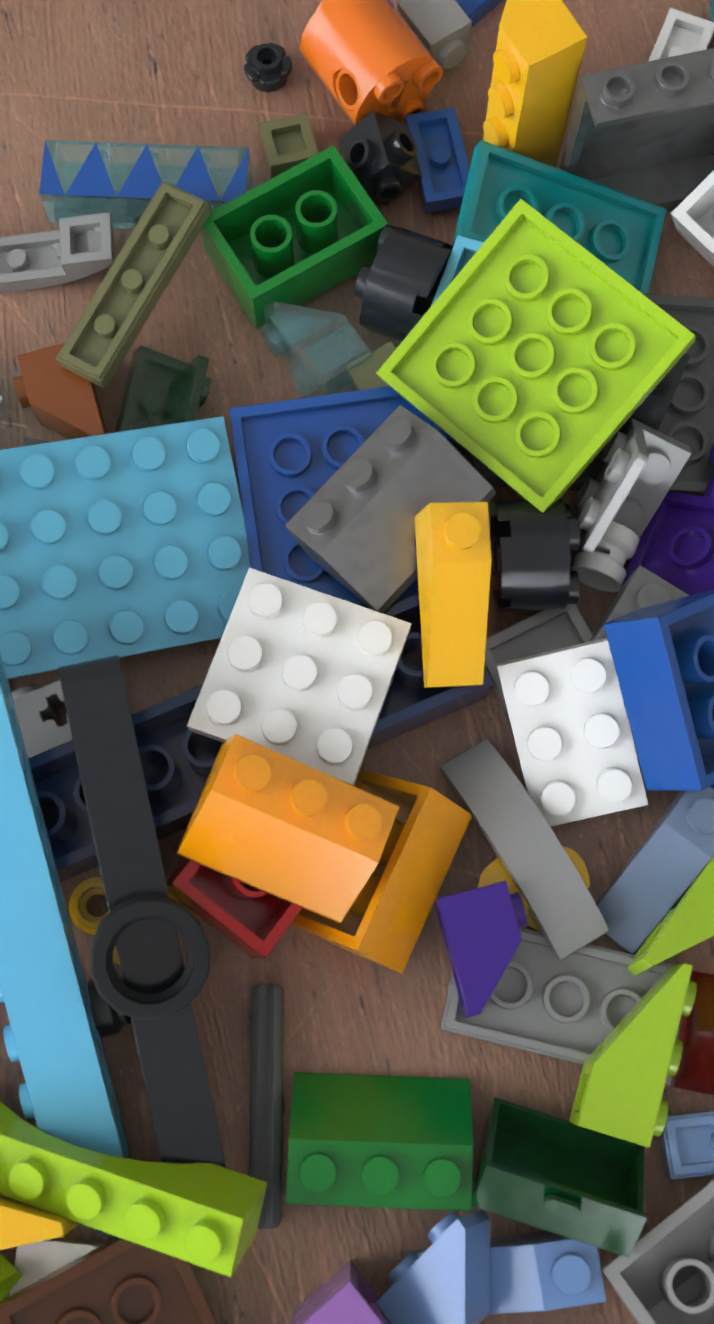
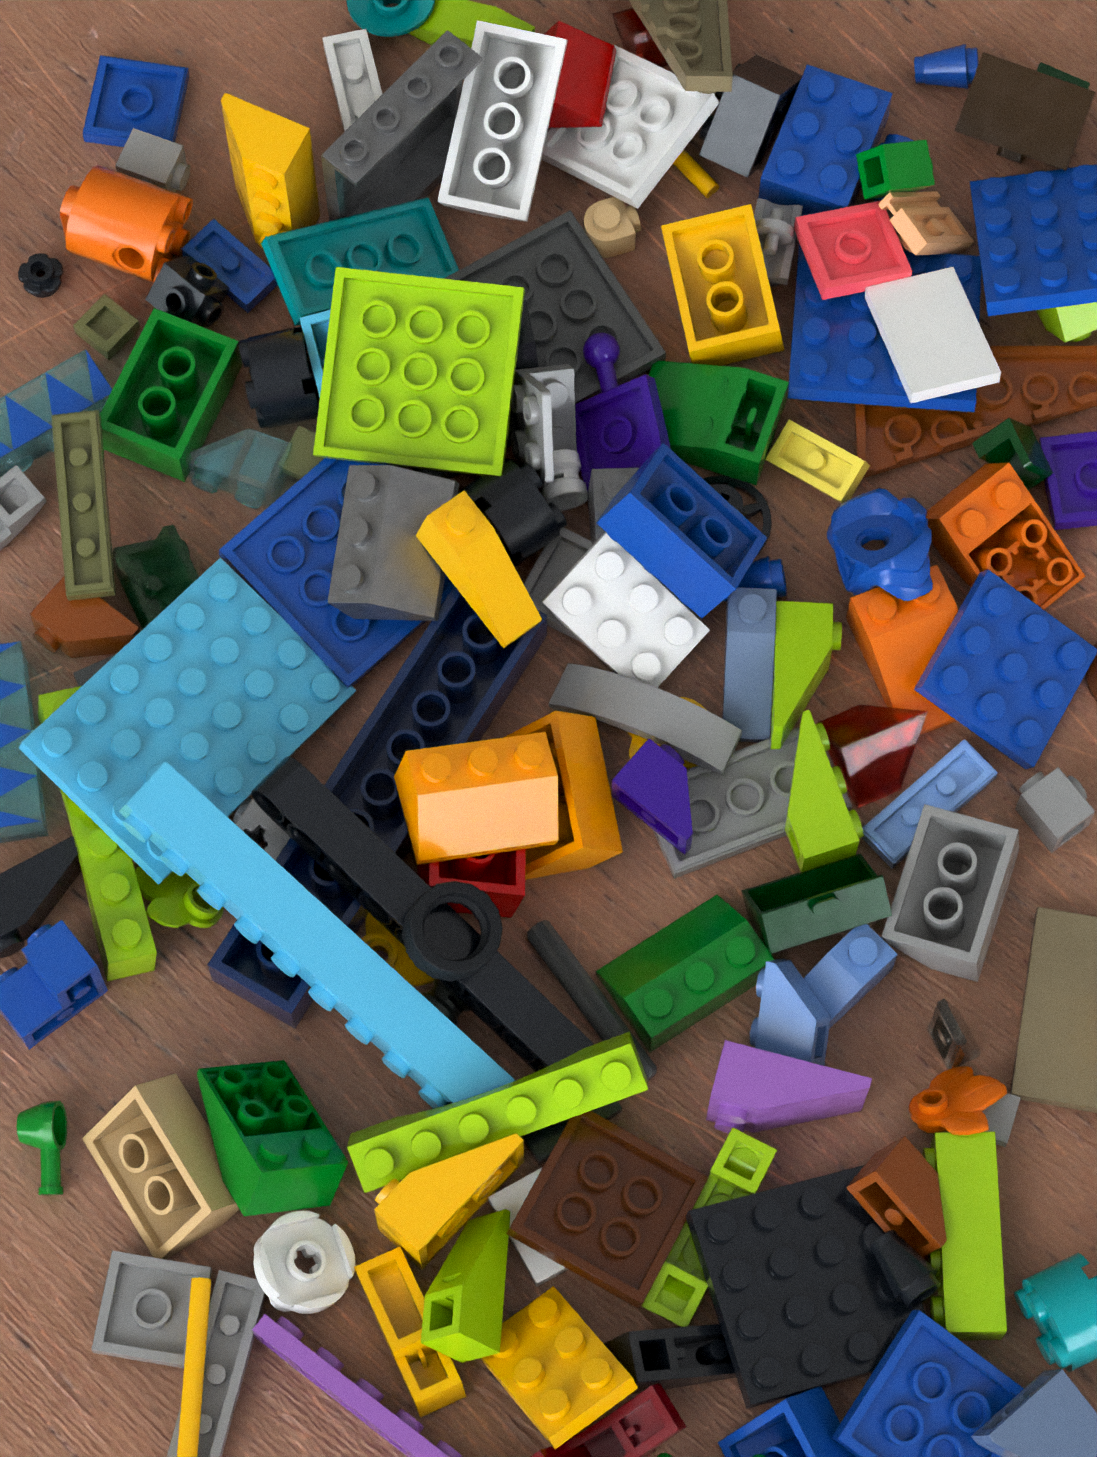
camera: 35 degrees left, 5 degrees down
(300, 674) = (410, 692): white plate -> none

